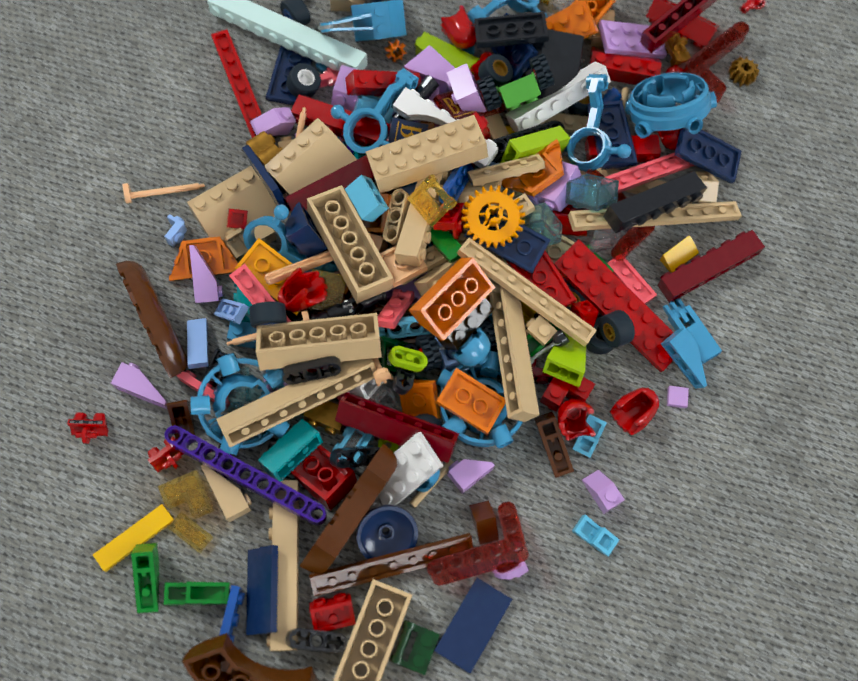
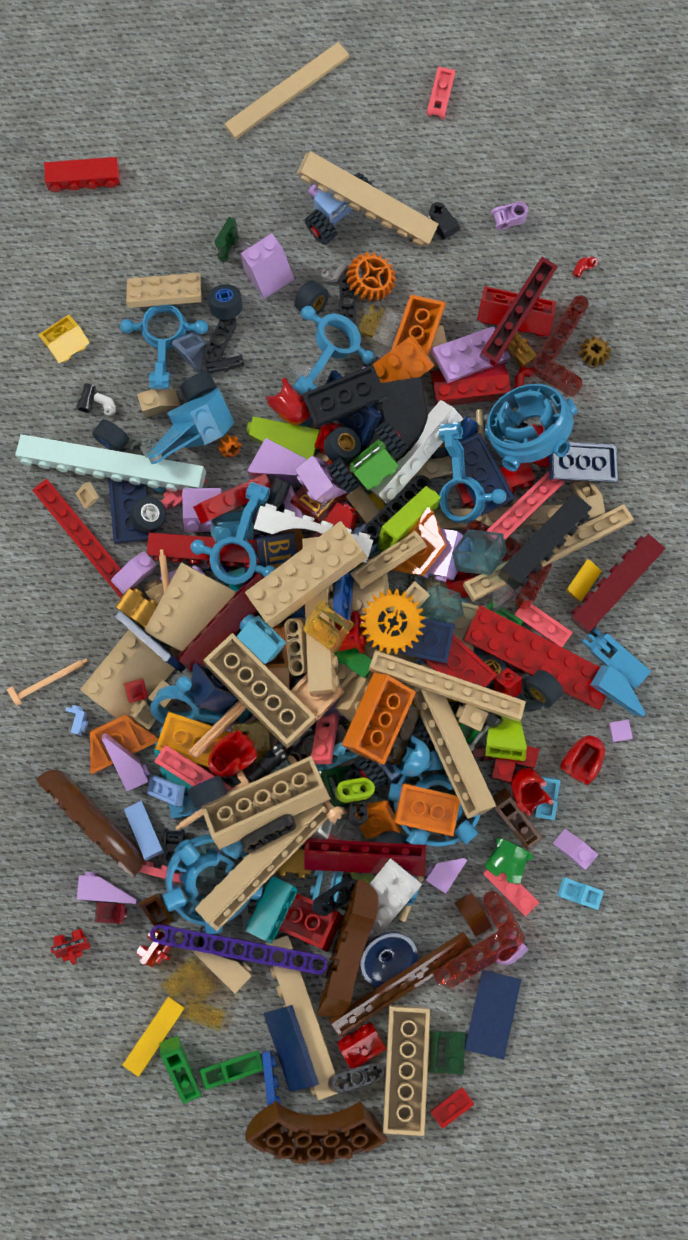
camera: 10 degrees left, 10 degrees up
(137, 407) = (110, 912): none -> dark red bracket
(257, 52) = (87, 495): none -> tan plate
(529, 508) = (515, 893): none -> coral plate
(534, 479) = (508, 859): none -> green piece

